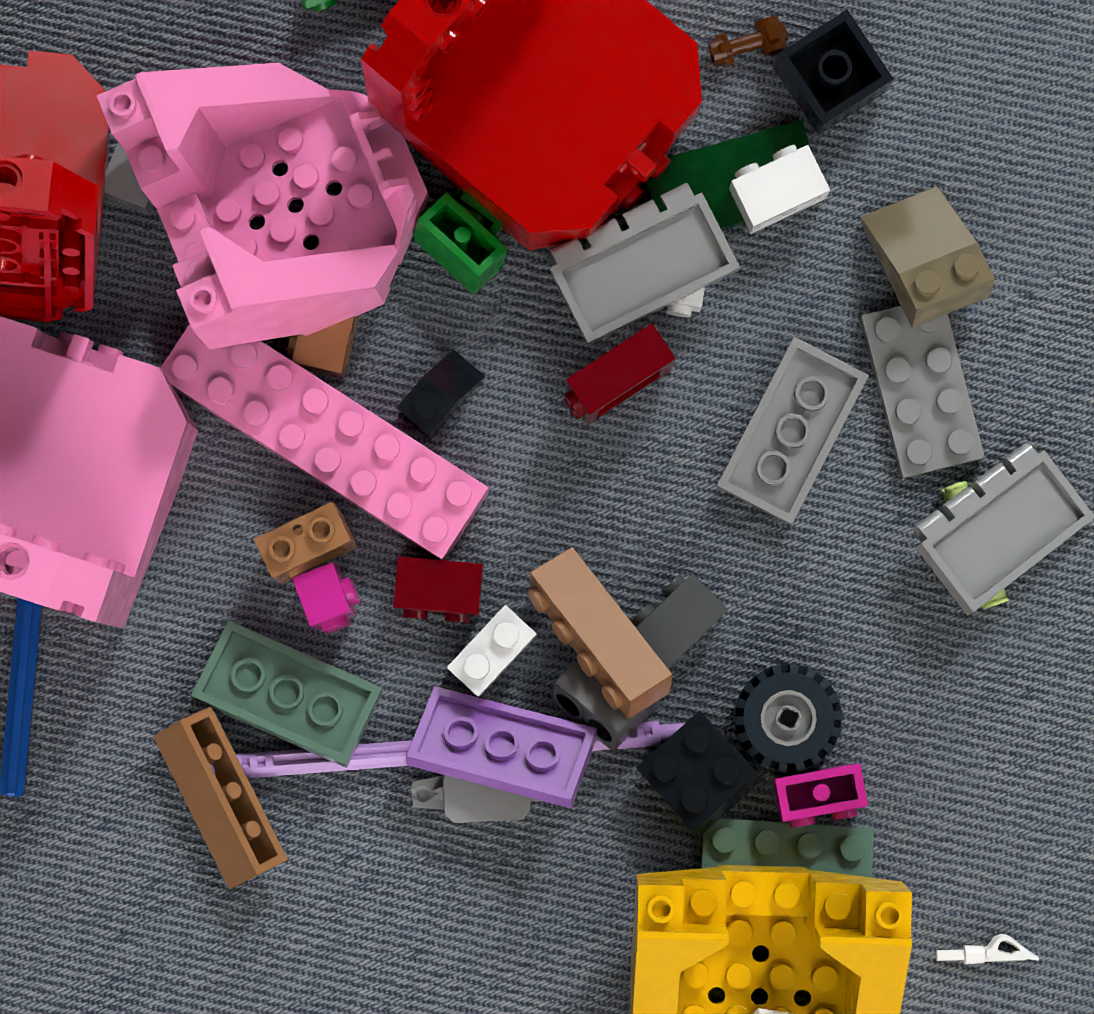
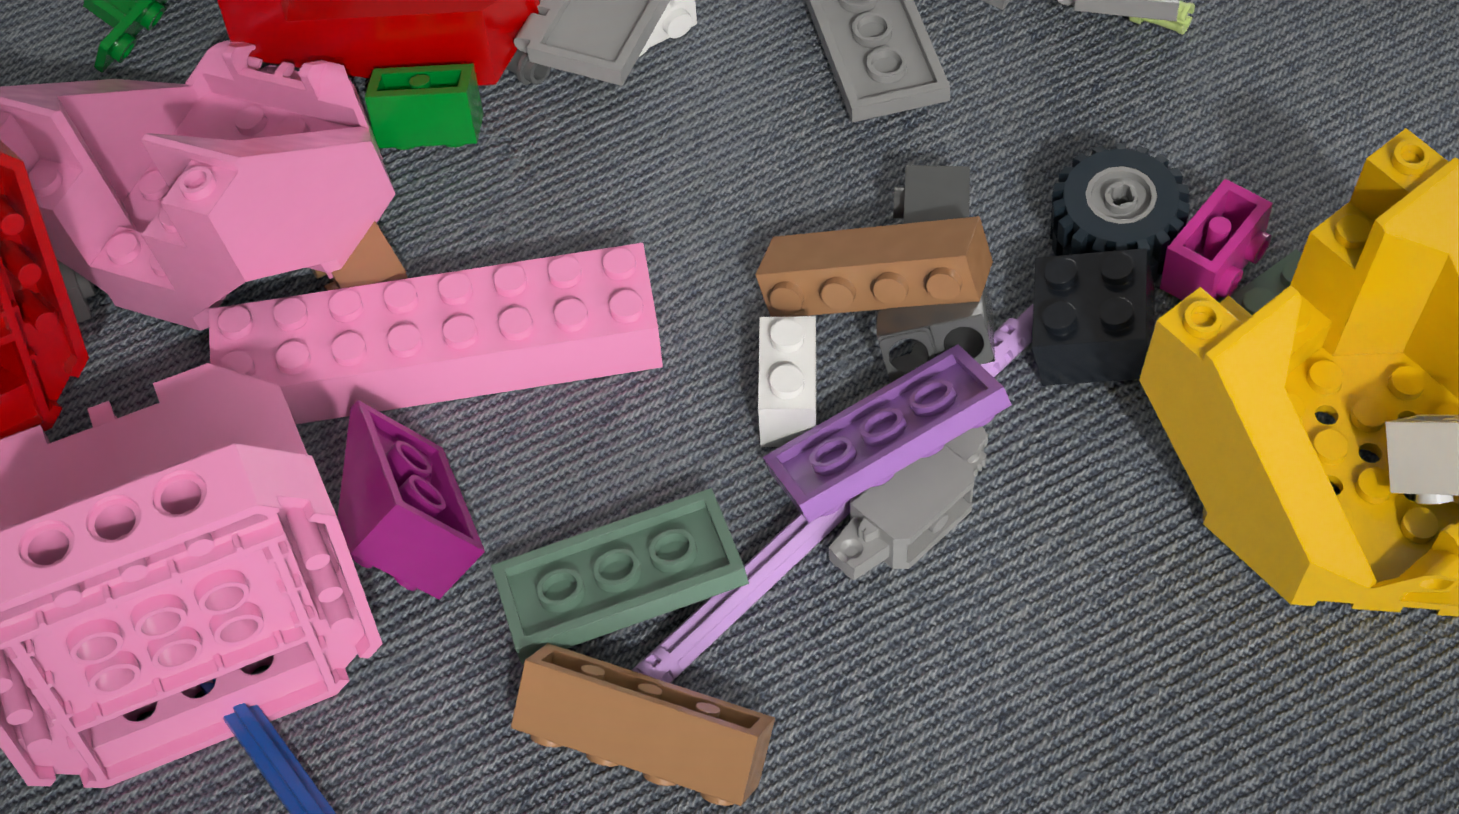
camera: 40 degrees left, 30 degrees down
(208, 544) = (403, 505): none -> magenta slope
(318, 540) = (507, 420): medium nougat window -> none
(327, 597) = (572, 451): dark pink brick -> none
(438, 588) = (679, 374): dark red brick -> none
(440, 393) = (519, 230): black slope -> none
(618, 375) = (674, 85): dark red window -> none

